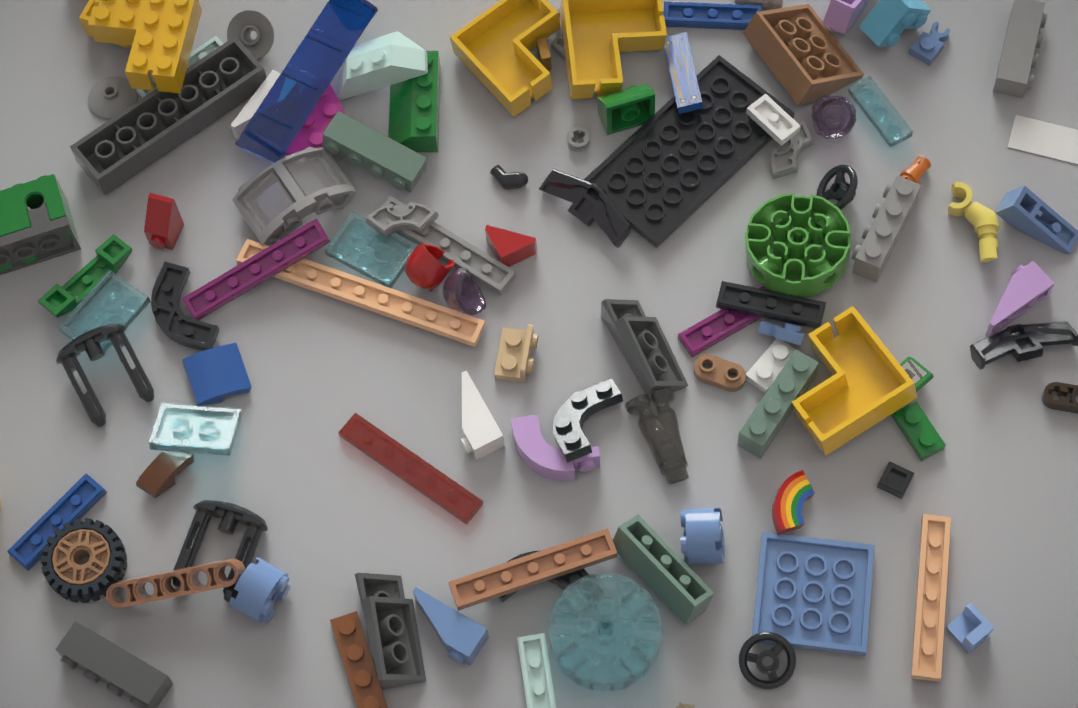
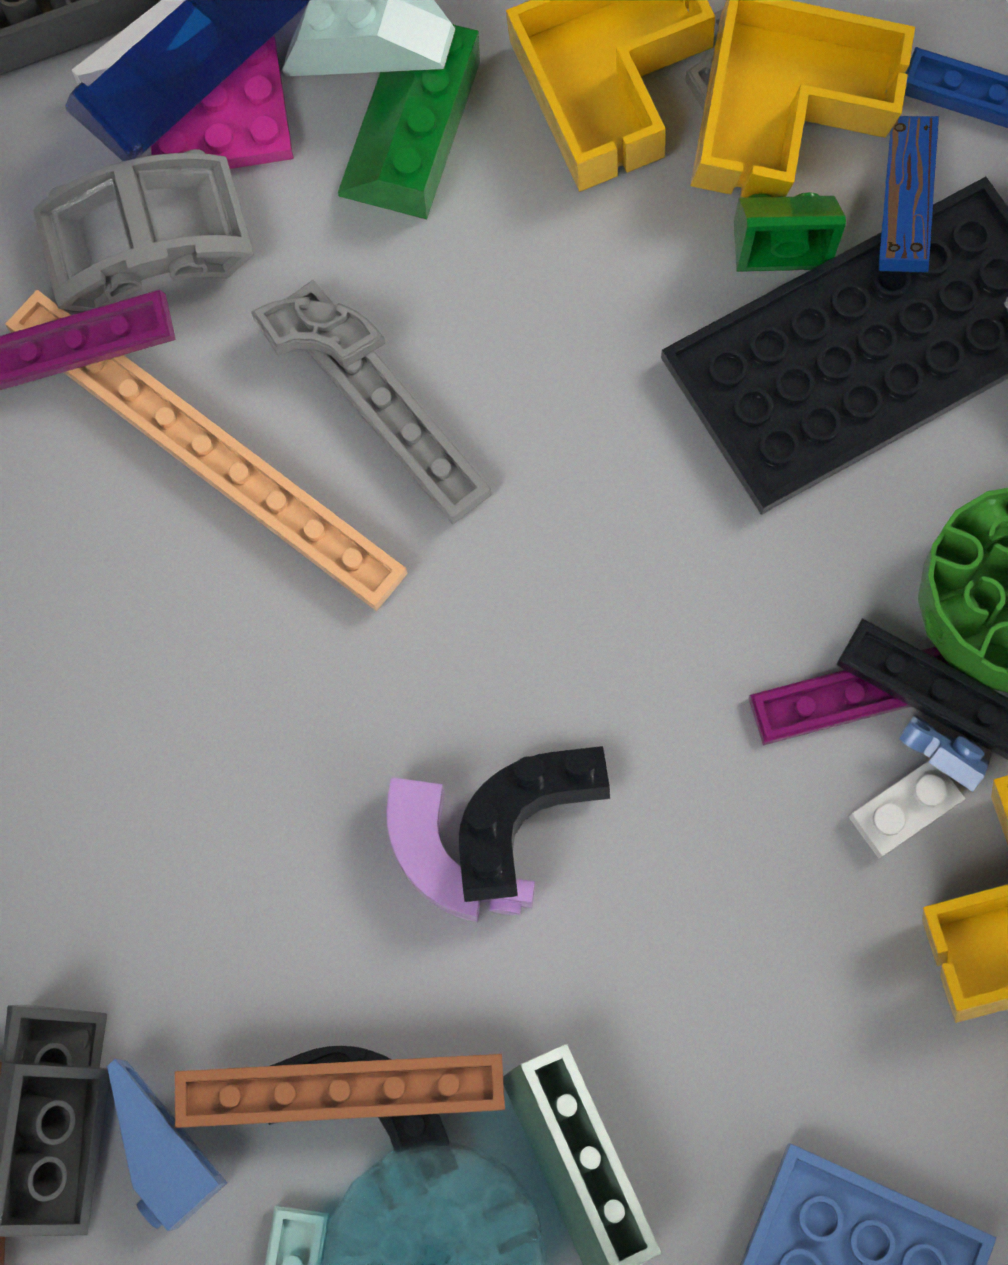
camera: 15 degrees right, 10 degrees up
(369, 251) = (244, 375): clear light blue plate -> none
(374, 152) = (307, 189): sand green brick -> none
(411, 468) = (190, 811): clear red tile -> none
(424, 267) = (322, 440): red helmet -> none
(463, 293) = (384, 505): clear purple hair -> none
(478, 425) = (331, 764): white slope -> none
(509, 180) = (533, 309): black arm -> none
(510, 246) = (495, 437): red slope -> none
(514, 354) = (443, 645): tan bracket -> none
(544, 53) = (668, 88): pearl gold tile -> none
(578, 131) = (689, 252): light grey bush -> none
(588, 204) = (662, 398): black plate -> none
(642, 345) = (680, 704): dark grey slope -> none
(661, 432) = (662, 886): clear smoke piece -> none
(703, 536) = (676, 1122): medium blue brick -> none
(718, 373) = (802, 797): medium nougat plate -> none
(777, 404) = (897, 893): sand green brick -> none
(789, 502) = (859, 1097): tile -> none

